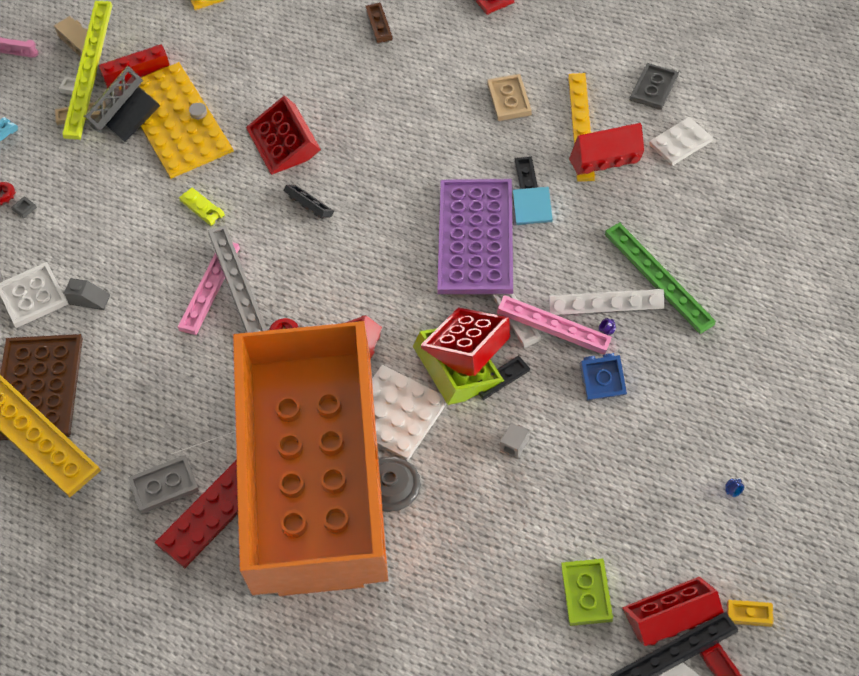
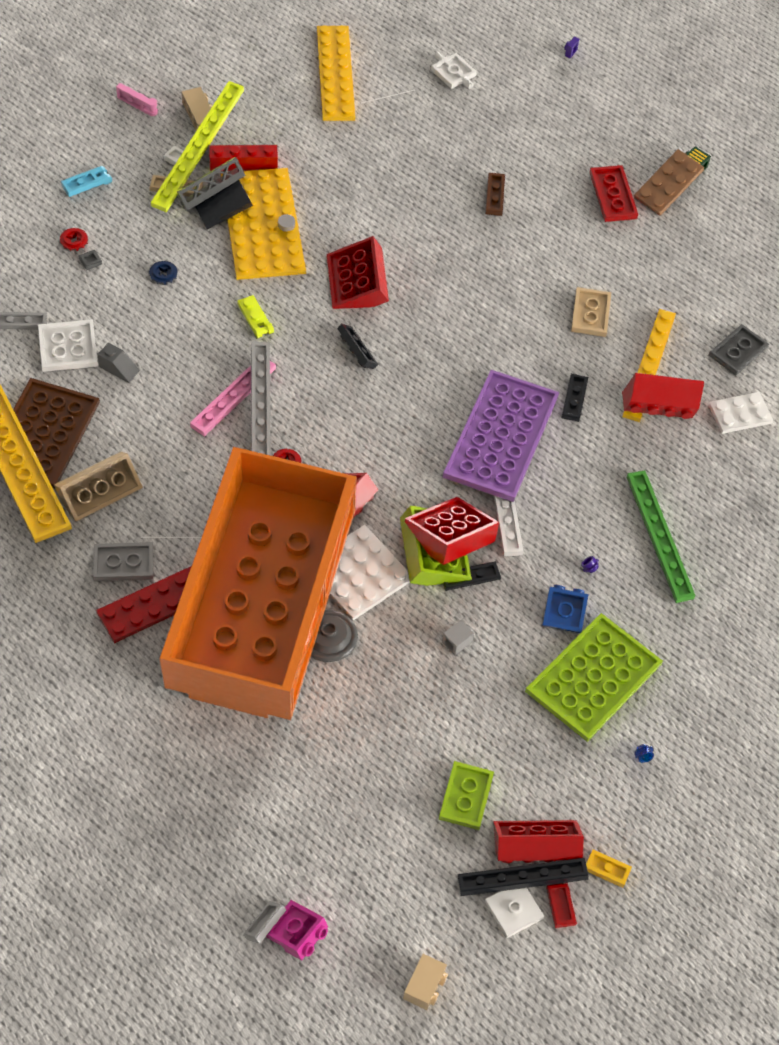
camera: 10 degrees right, 0 degrees up
(98, 189) = (163, 266): none -> dark blue gear
(111, 419) = (98, 486): none -> tan slope
(532, 205) = (568, 425): medium azure tile -> none
(554, 325) = (539, 544): bright pink plate -> none
(606, 301) = (599, 541): white plate -> none
(656, 432) = (593, 677): none -> lime plate

